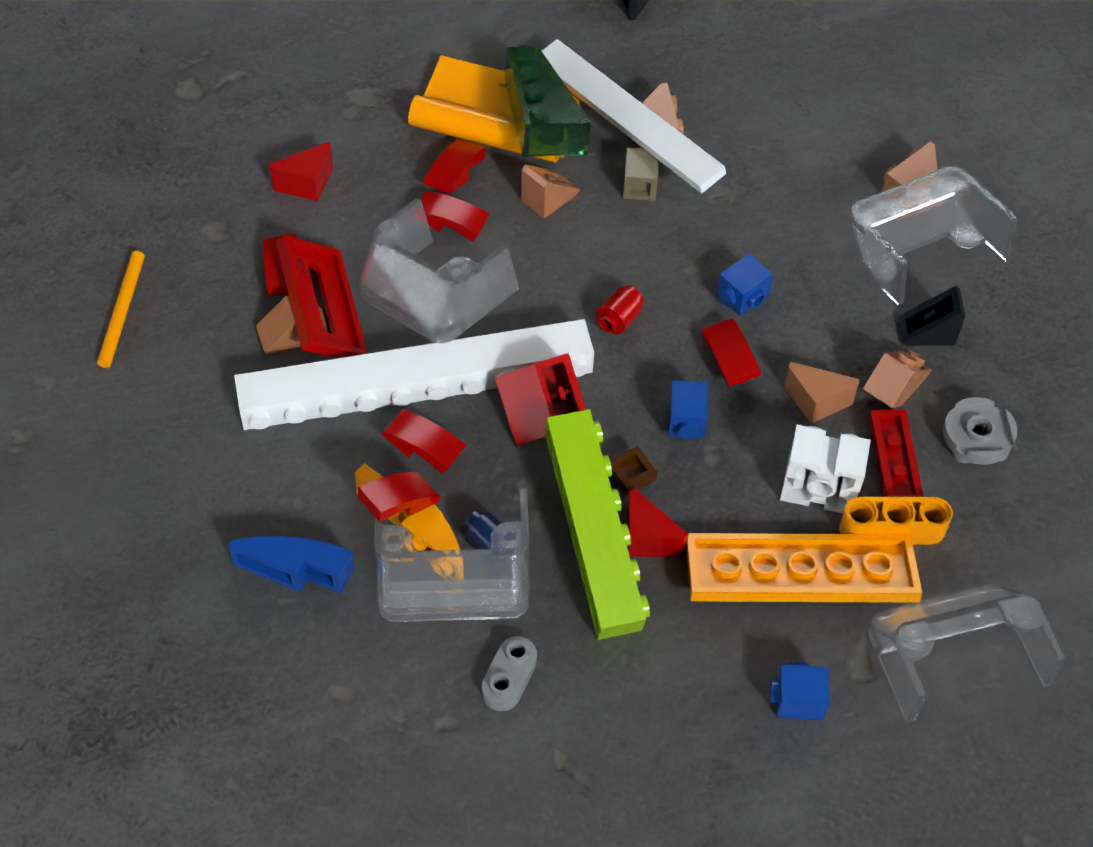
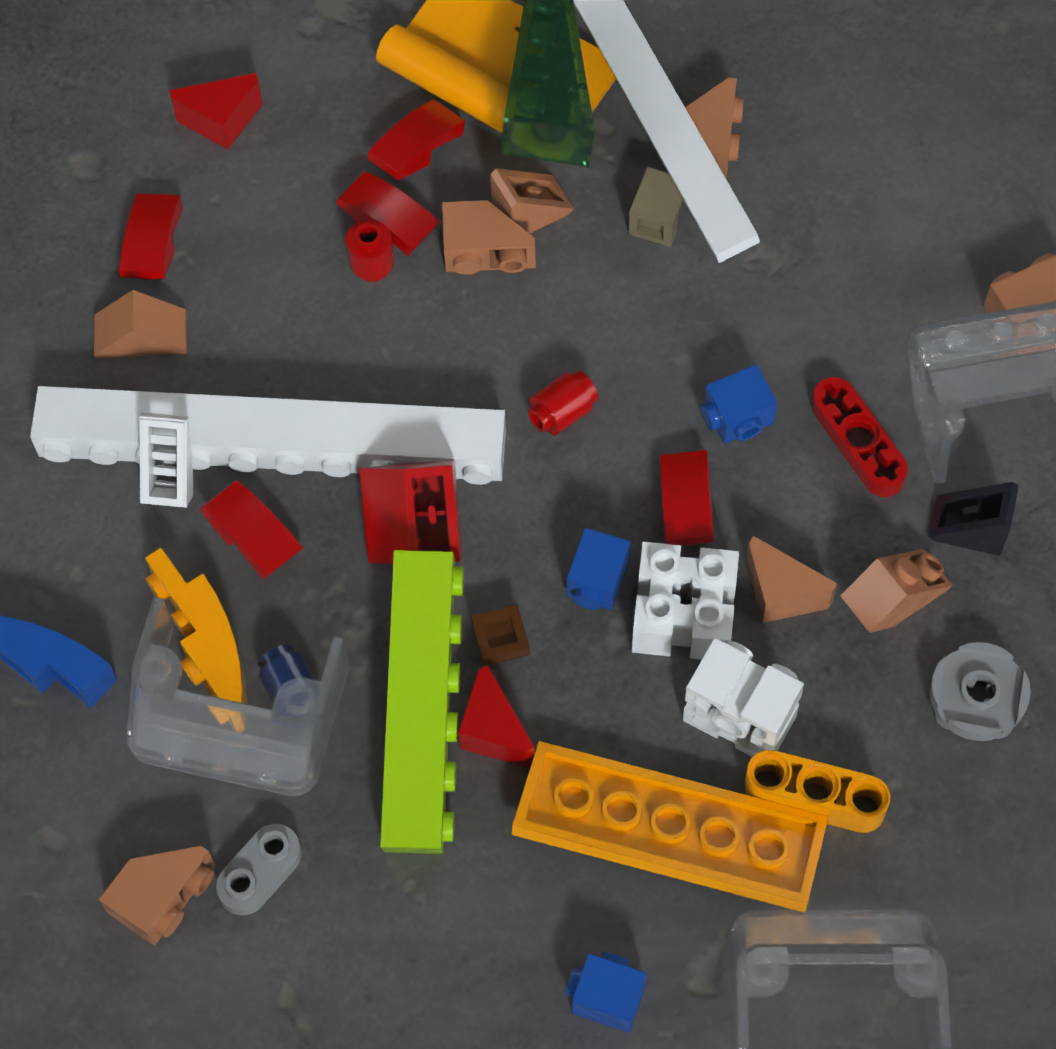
camera: 20 degrees right, 10 degrees up
(327, 262) = (208, 251): red piece -> none
(353, 429) = (160, 491): none -> white slope
(396, 494) = (179, 606): red slope -> none
(428, 298) = (317, 345): clear windscreen -> none
(437, 704) = (156, 888): none -> nougat slope
(448, 238) = (370, 249): none -> red brick
(526, 217) = (483, 239): none -> nougat slope
(755, 417) = (666, 581): none -> white brick
(836, 303) = (888, 456): none -> red beam
(895, 453) = (852, 700): red plate -> none

